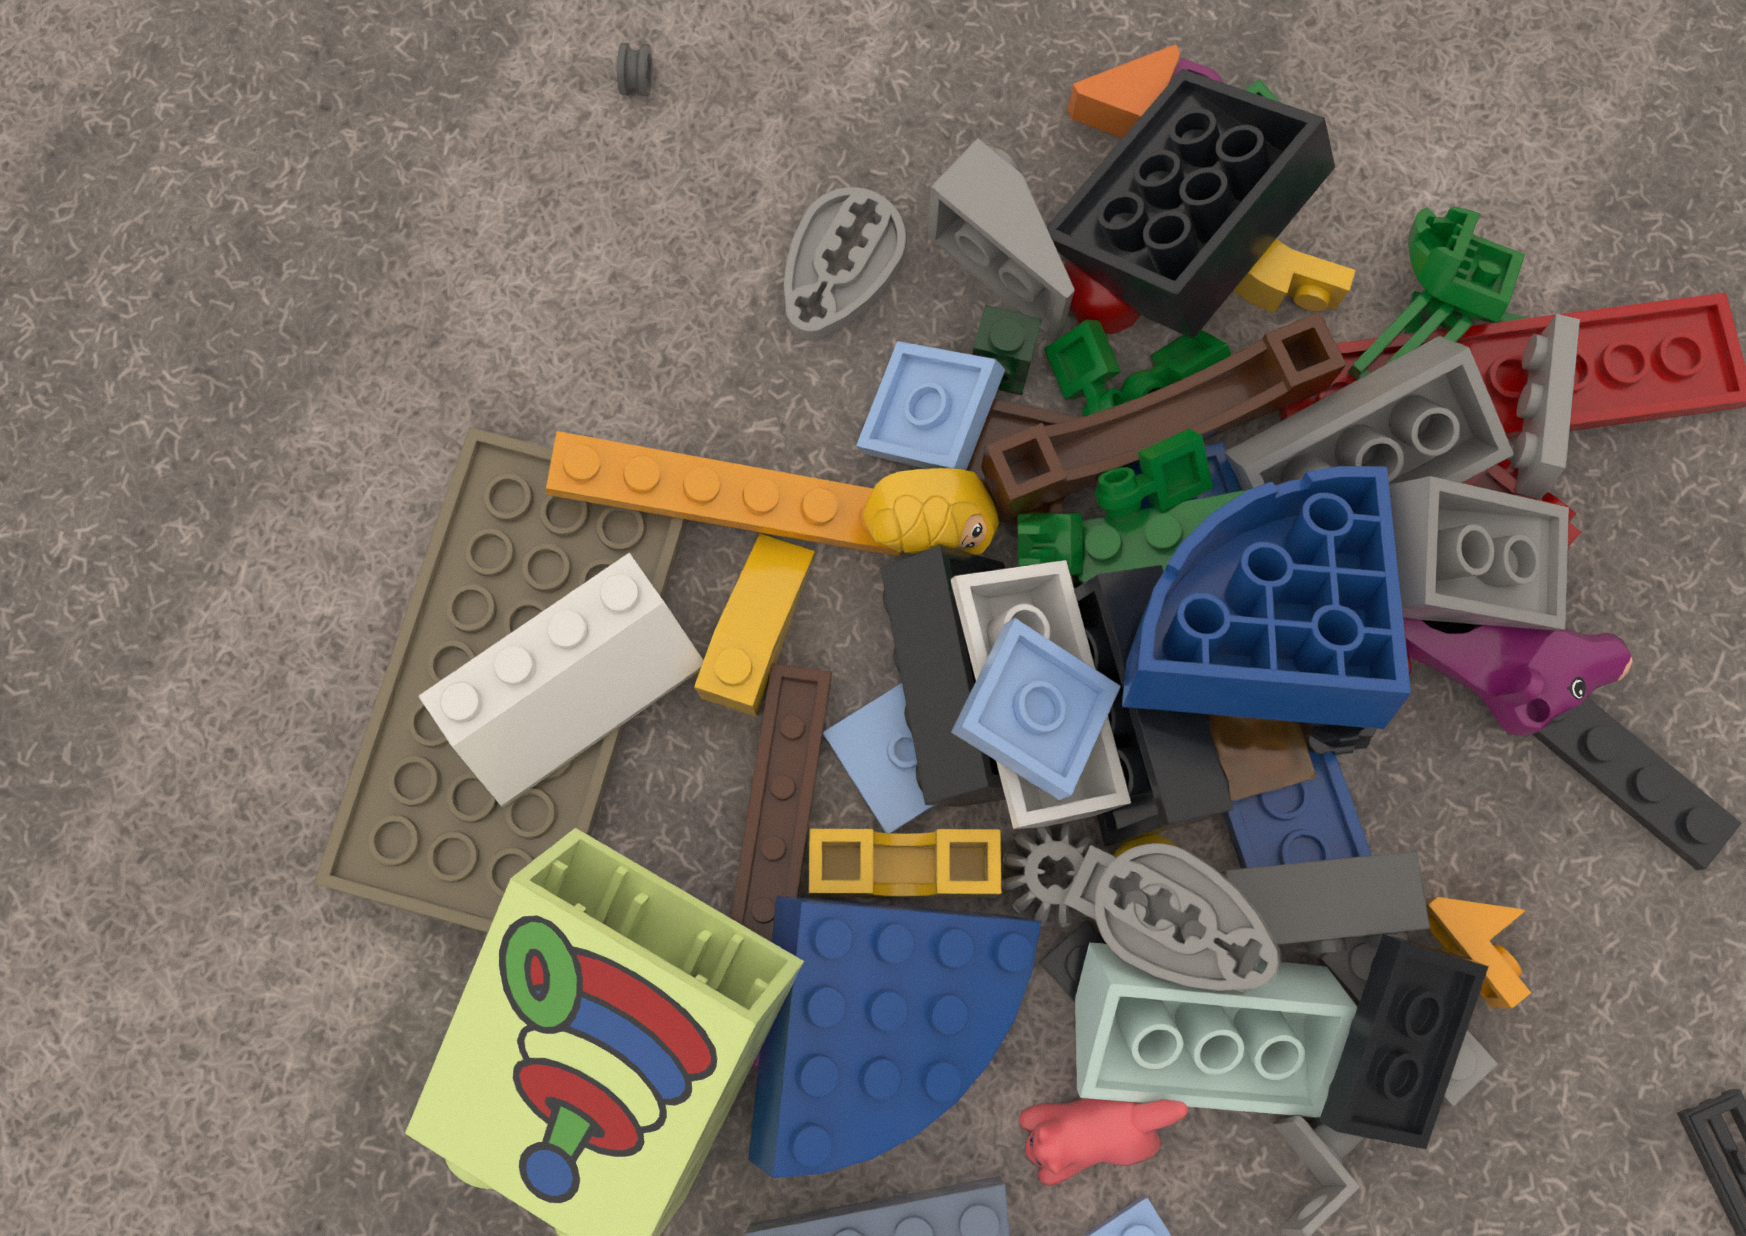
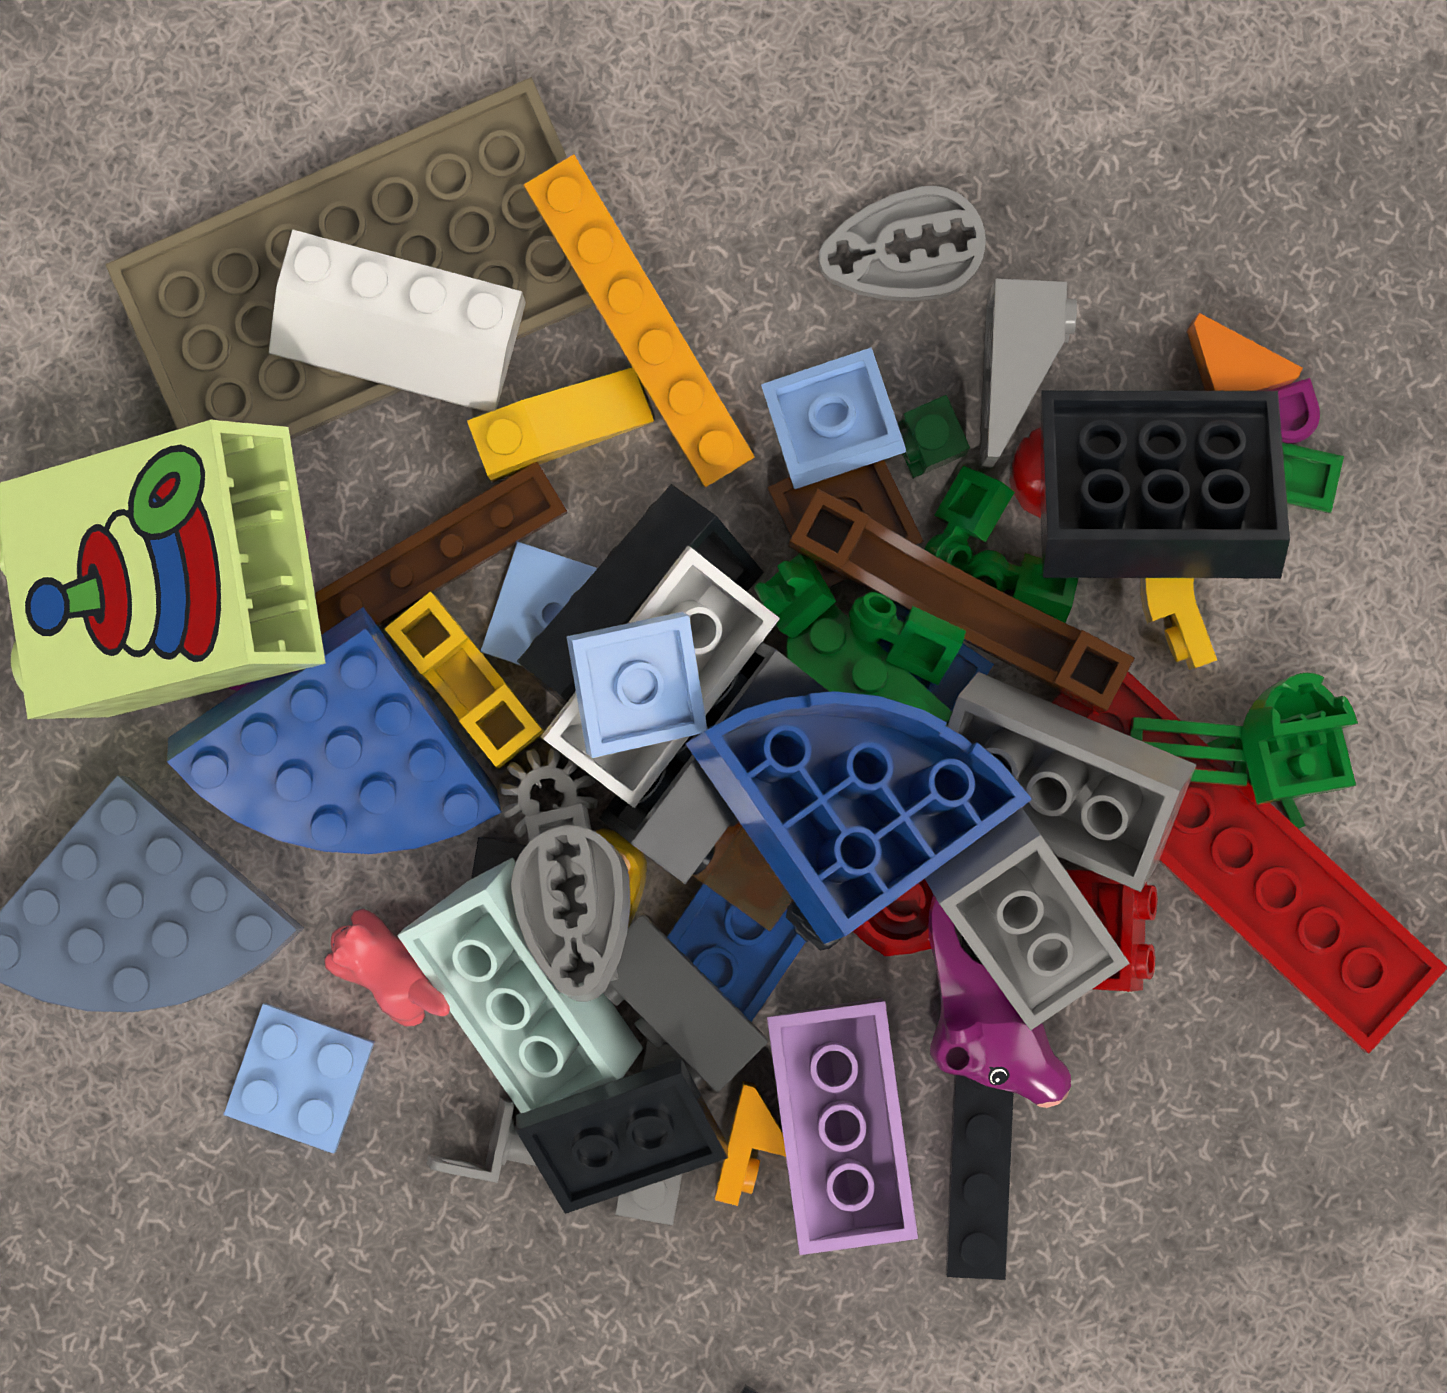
camera: 50 degrees right, 10 degrees up
(930, 509) = (743, 489): yellow piece -> none
(1528, 848) = (842, 1126): none -> lavender slope
(1546, 406) = (1210, 887): light grey plate -> none

